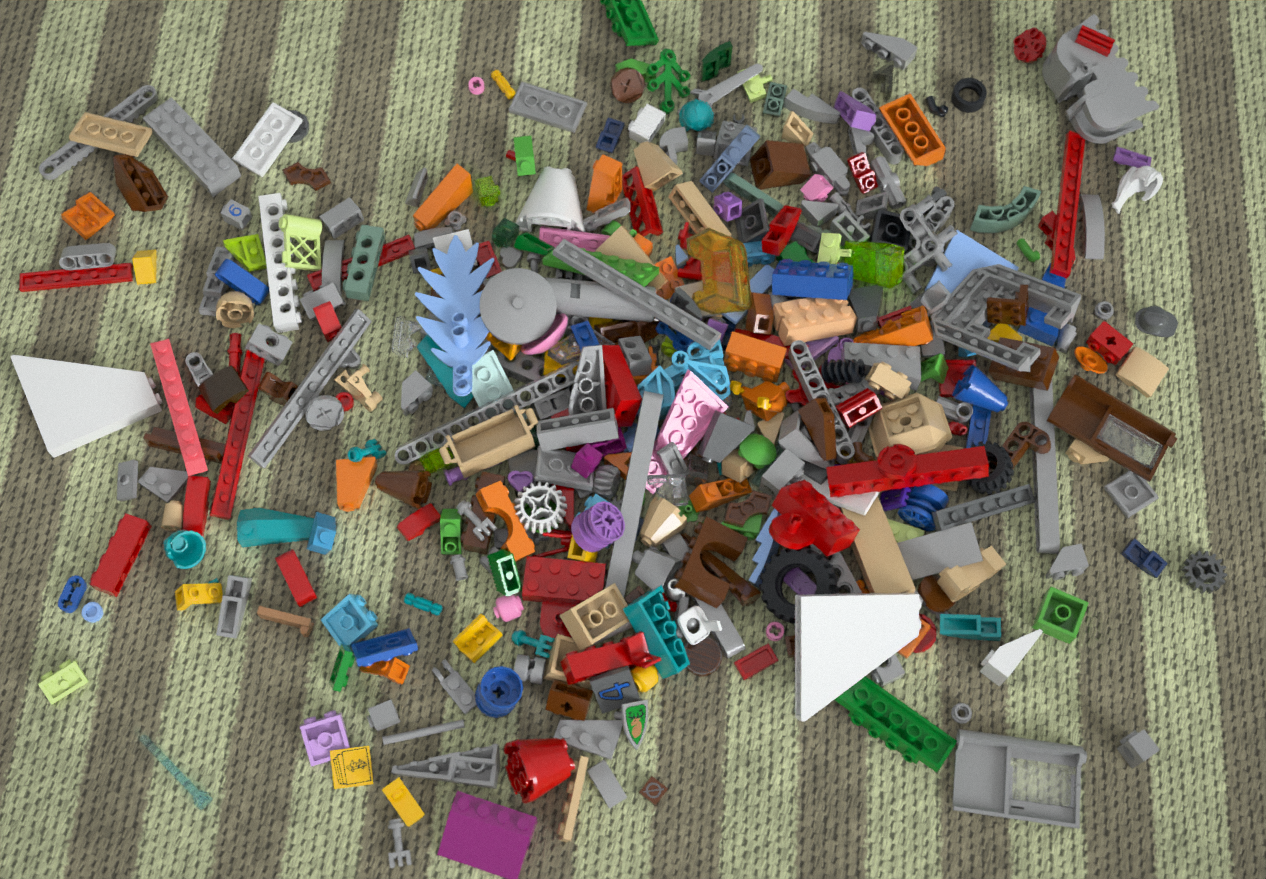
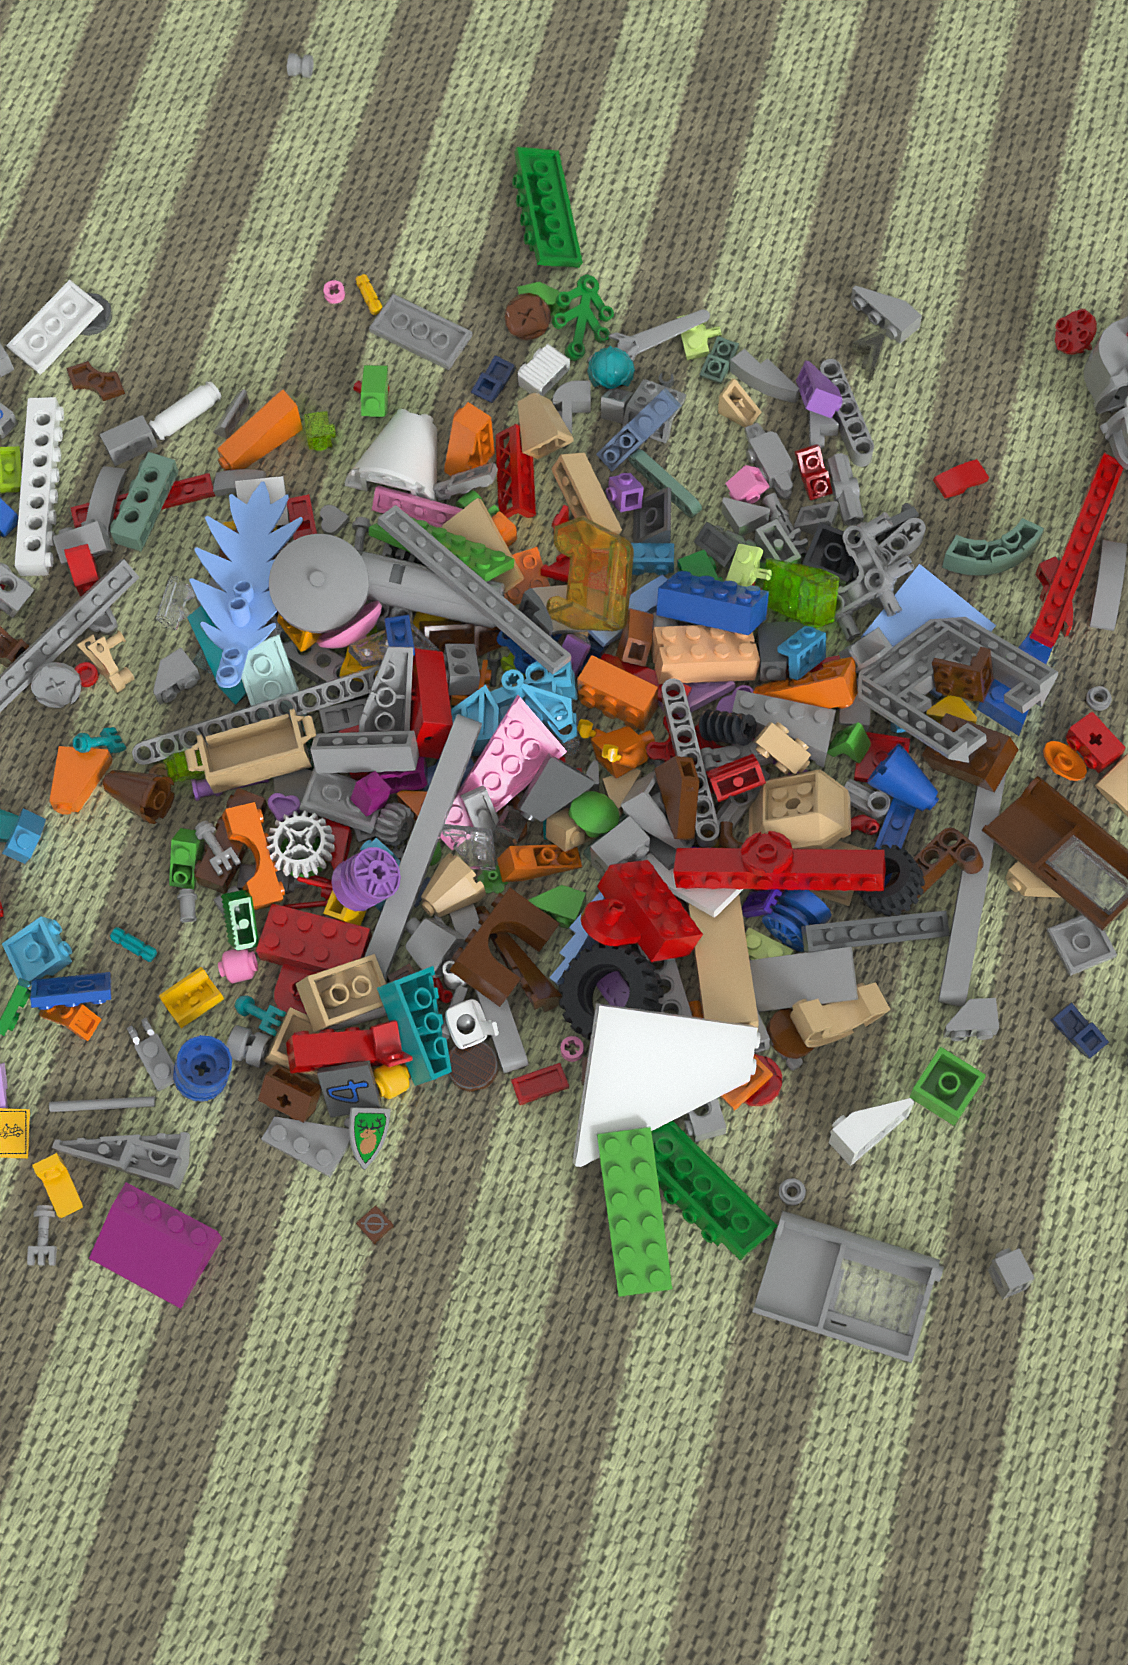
camera: 15 degrees right, 0 degrees up
(301, 228) = (75, 447): yellowish green piece -> none
(381, 189) = (184, 410): none -> white axle
(383, 715) = (55, 1075): light grey brick -> none
(418, 521) = (145, 840): red slope -> none
(419, 258) = (215, 506): dark grey brick -> none
(455, 215) = (272, 456): light grey plate -> none
(503, 237) = (327, 492): clear green brick -> none
(532, 244) = (360, 506): green slope -> none
(537, 766) = (232, 1167): red cone -> none
(570, 806) = (264, 1227): tan plate -> none
(606, 783) = (317, 1205): light grey slope -> none
(680, 257) = (549, 551): medium blue slope -> none
(716, 60) = (649, 298): dark green slope -> none
(739, 513) = (555, 890): reddish brown tile -> none
(779, 165) = (706, 447): reddish brown slope -> none
(781, 230) = (686, 532): red slope -> none
(851, 748) = (634, 1211): none -> bright green plate
(887, 304) = (804, 650): none -> dark azure bracket
(913, 131) = (891, 426): orange slope -> none
(934, 109) = (930, 401): black arm -> none
(967, 106) = (975, 403): black tyre -> none
(969, 163) = (959, 478): none -> red slope
(970, 627) = (827, 1083): teal slope -> none
(1027, 251) = (1016, 612): bright green arm -> none
(1065, 337) = (1038, 726): light grey cone -> none

